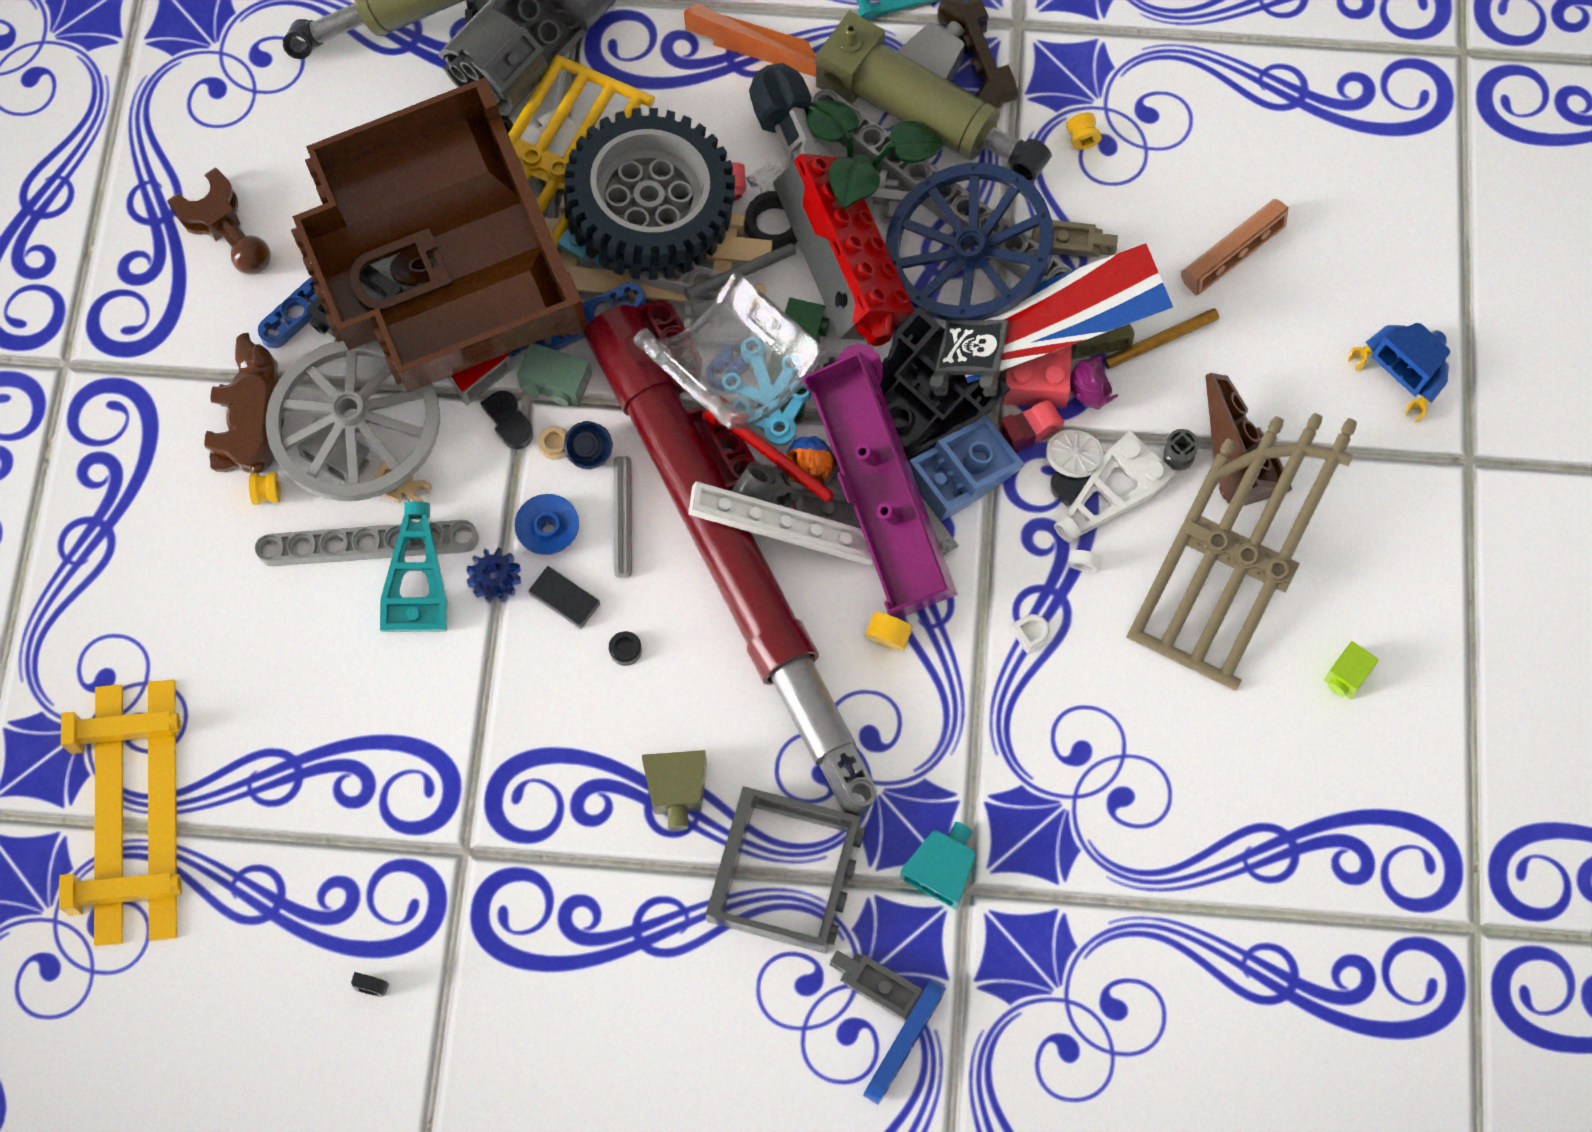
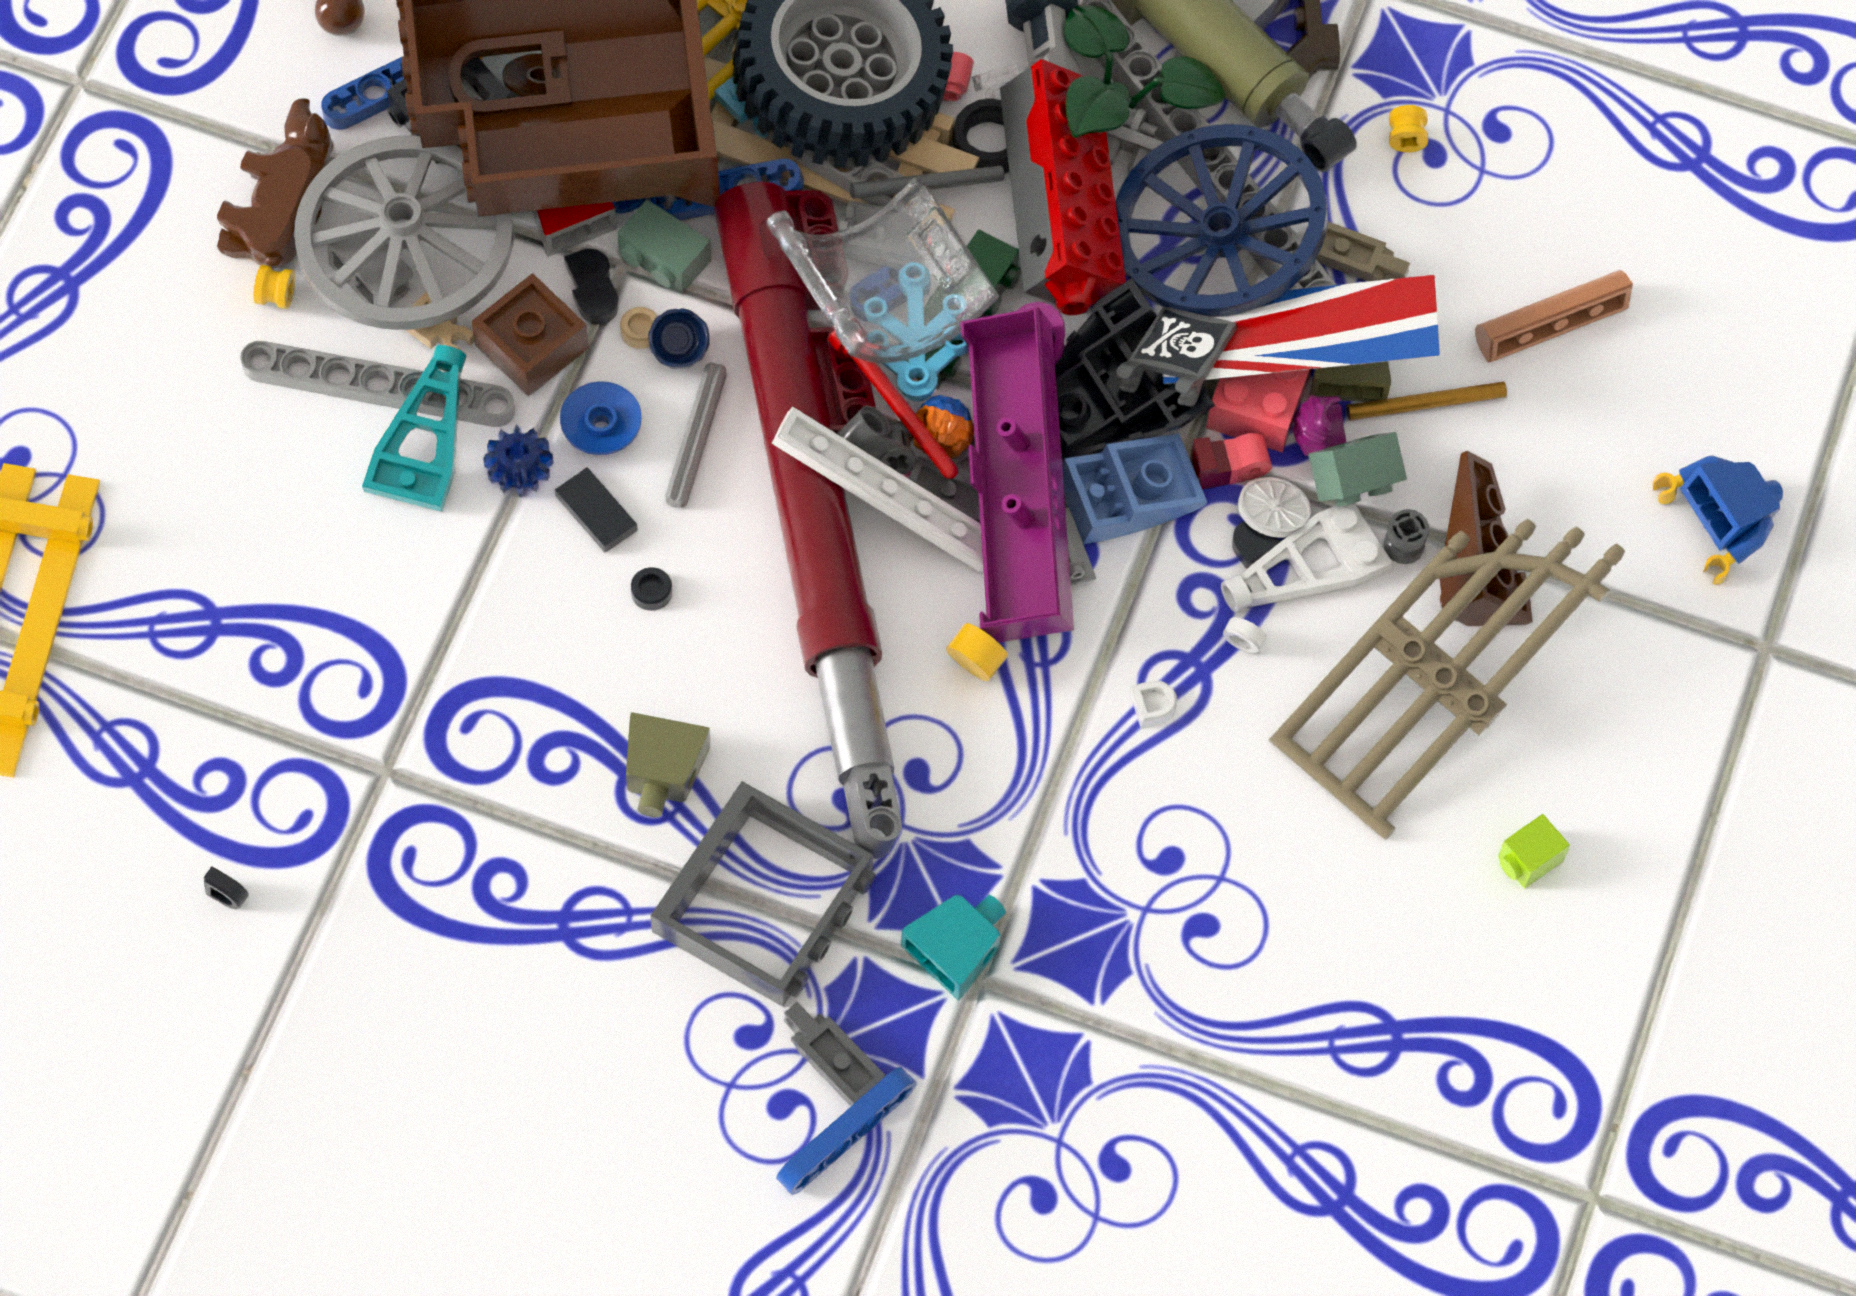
camera: 10 degrees right, 5 degrees down
(473, 473) = (530, 334): none -> reddish brown container
(1130, 407) = (1357, 468): none -> sand green brick

